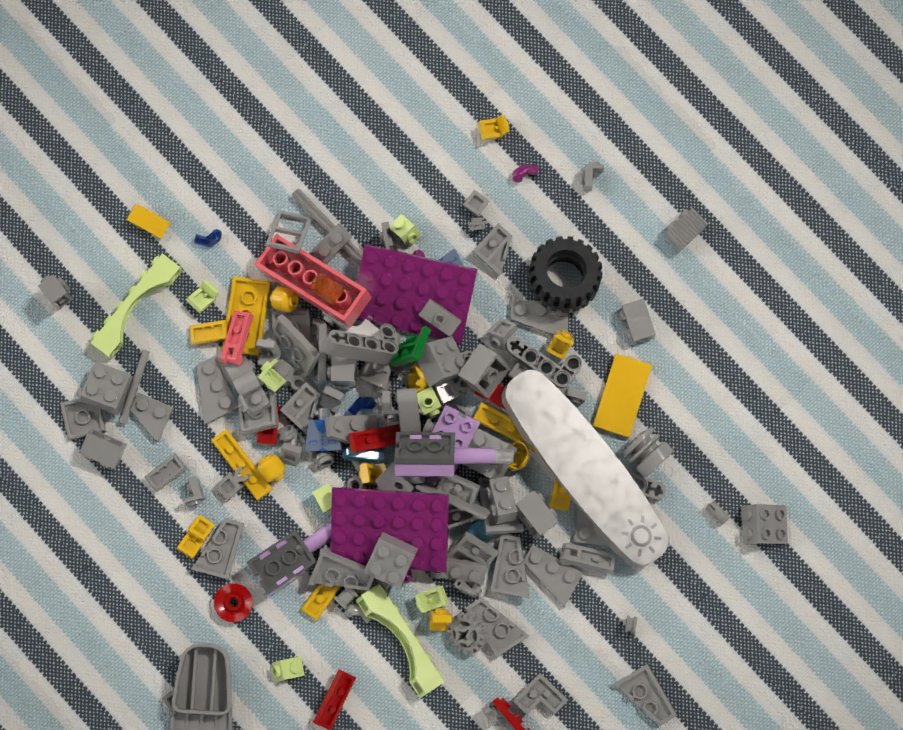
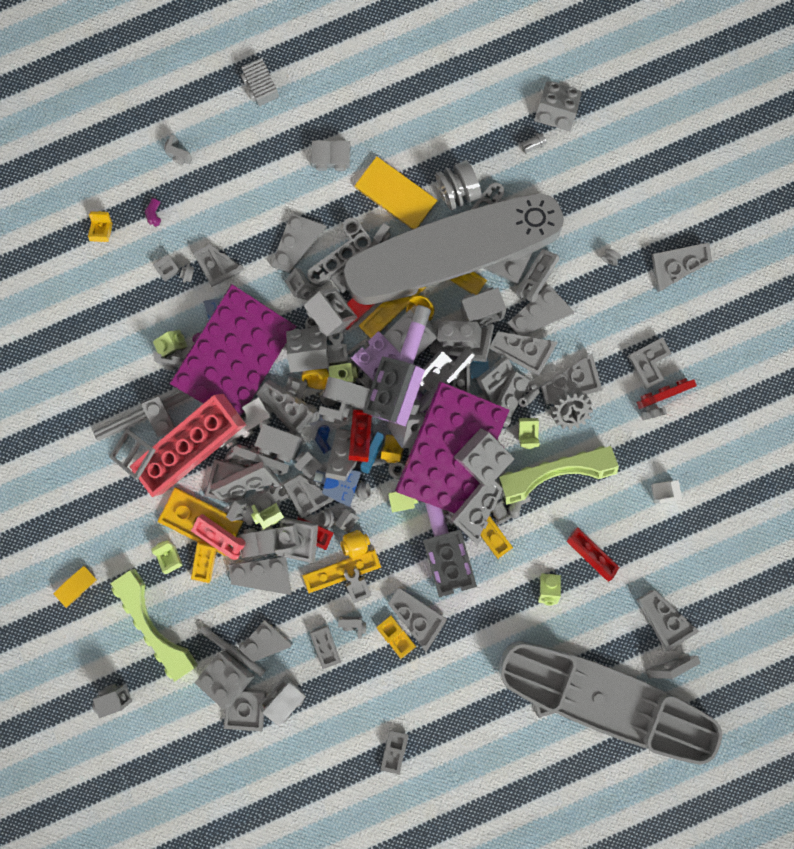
camera: 75 degrees left, 5 degrees up
(86, 571) = (394, 752): none -> light grey slope
(210, 240) = (114, 533): clear blue arm -> none
(223, 600) = (478, 628): red dish -> none
(284, 299) = (196, 479): yellow head -> none
(326, 288) = (199, 433): clear orange bracket -> none
(374, 349) = (274, 407): light grey beam -> none
(411, 348) = (287, 373): green wing -> none
(439, 619) = (550, 431): yellow bracket -> none
(440, 317) = (265, 336): light grey plate -> none
(560, 343) = (328, 233): yellow bracket -> none
(564, 251) = (248, 189): black tyre -> none

